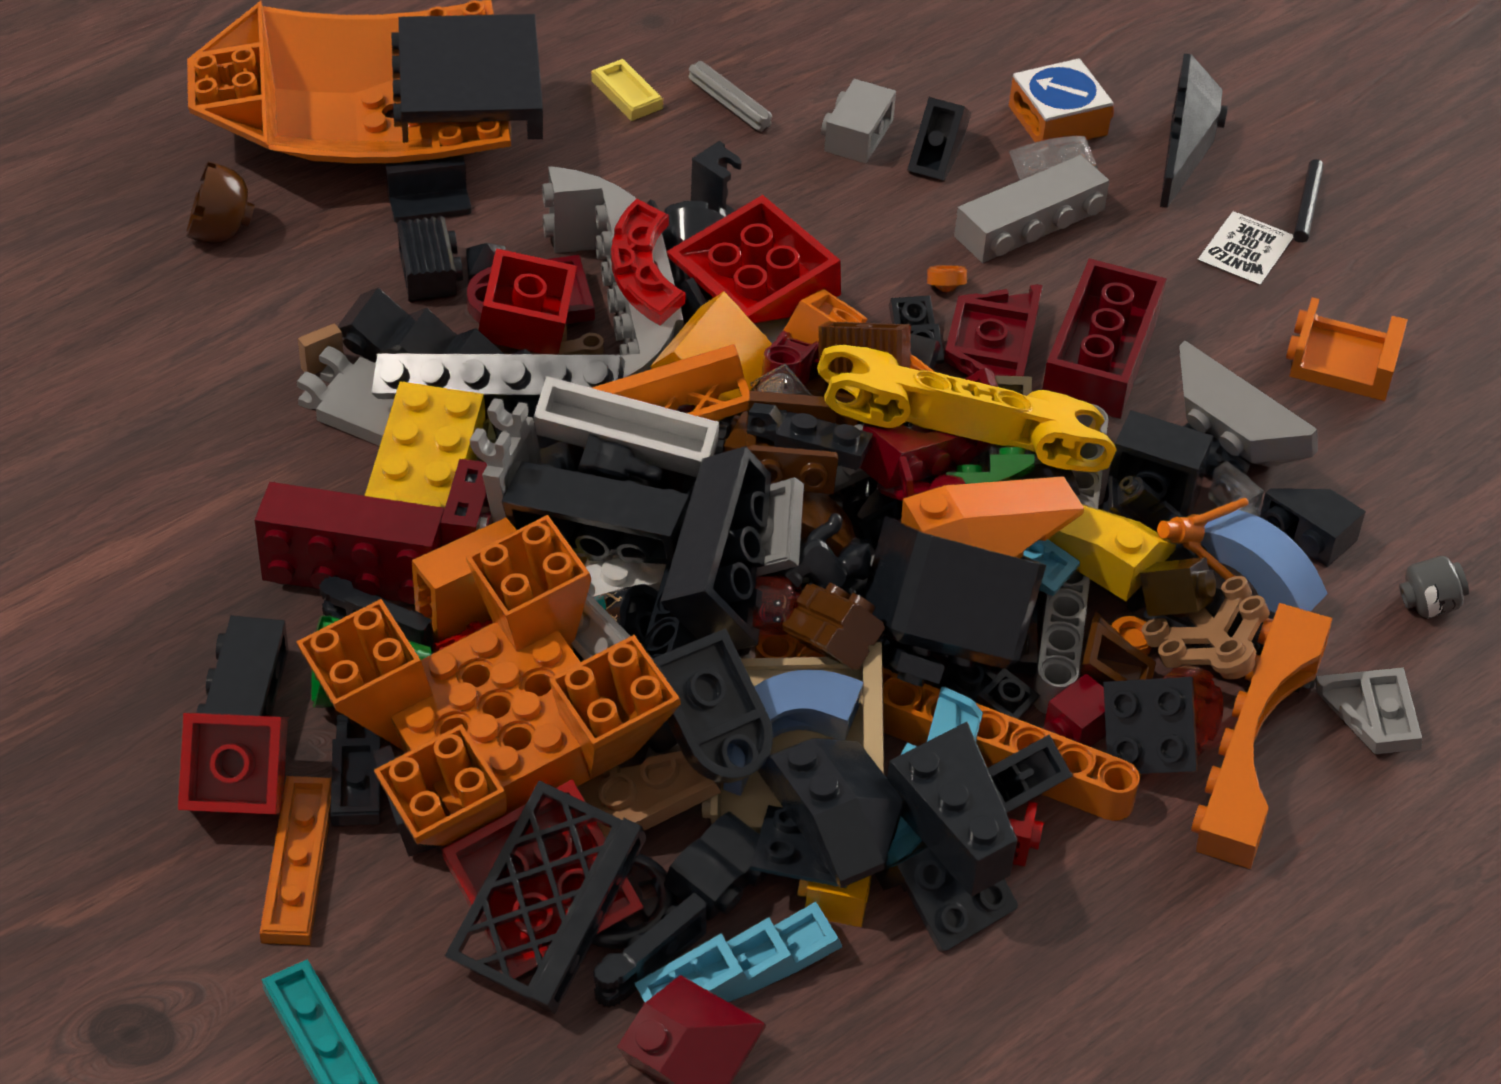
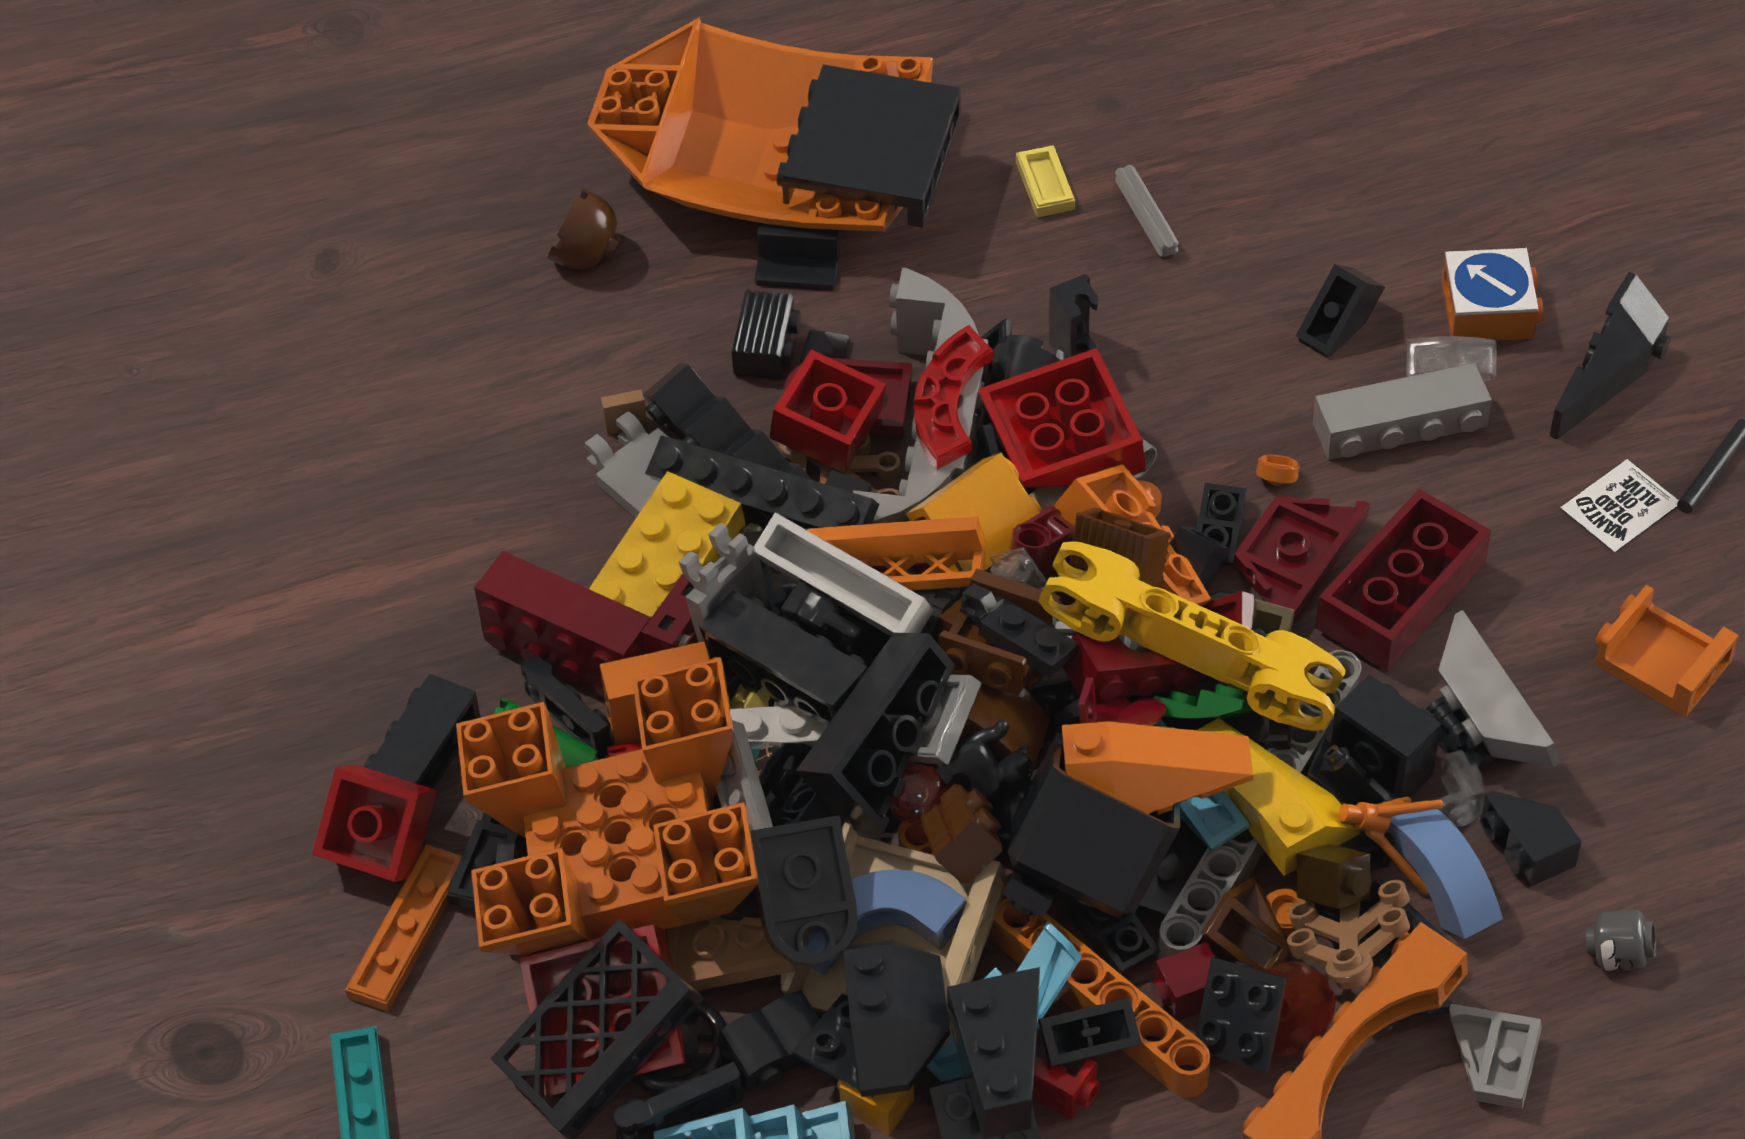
camera: 25 degrees right, 5 degrees up
(858, 120) = (1265, 269): light grey brick -> none

